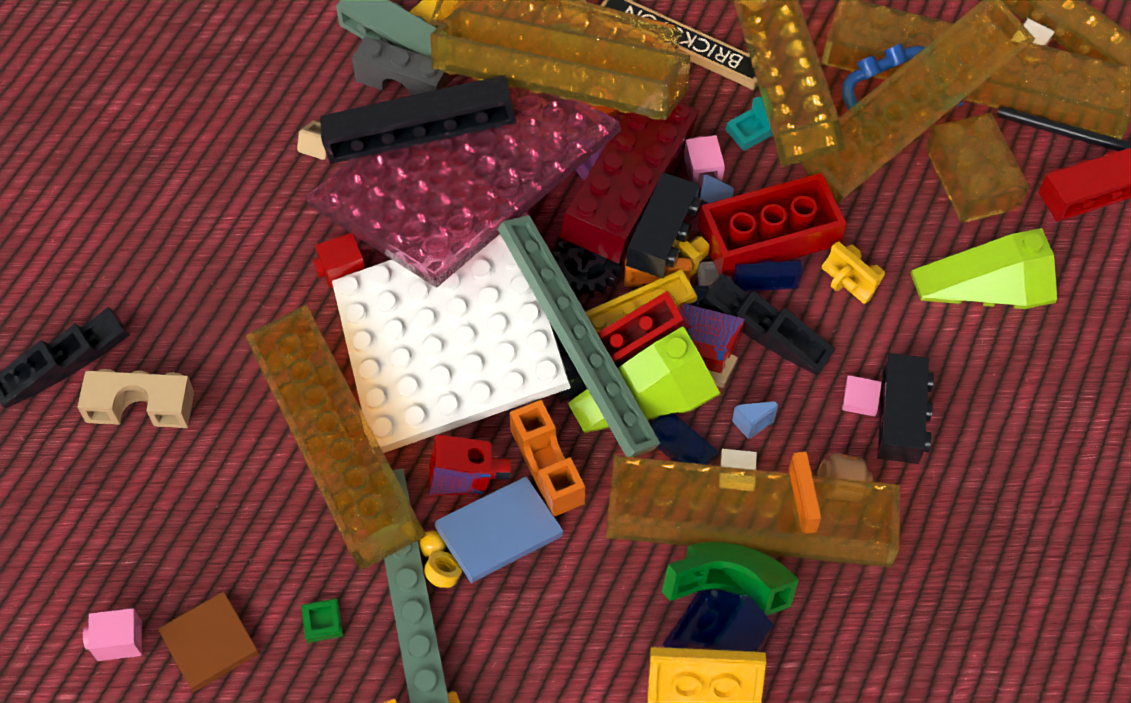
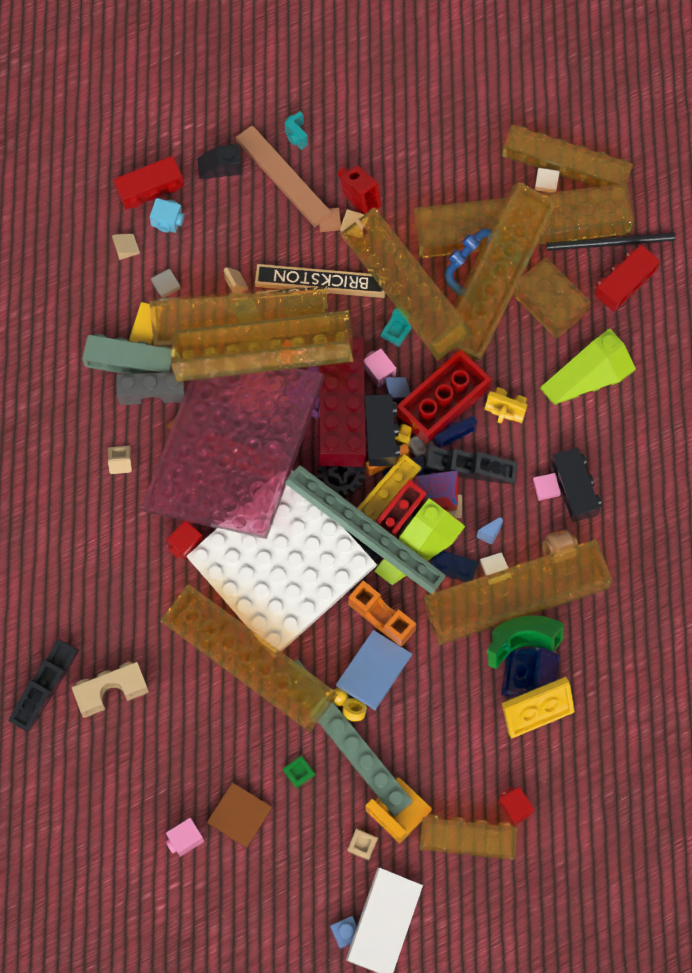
camera: 25 degrees left, 10 degrees up
(417, 119) = (188, 424): black brick -> none
(464, 466) = (335, 642): red torso -> none
(804, 493) = (546, 571): orange tile -> none

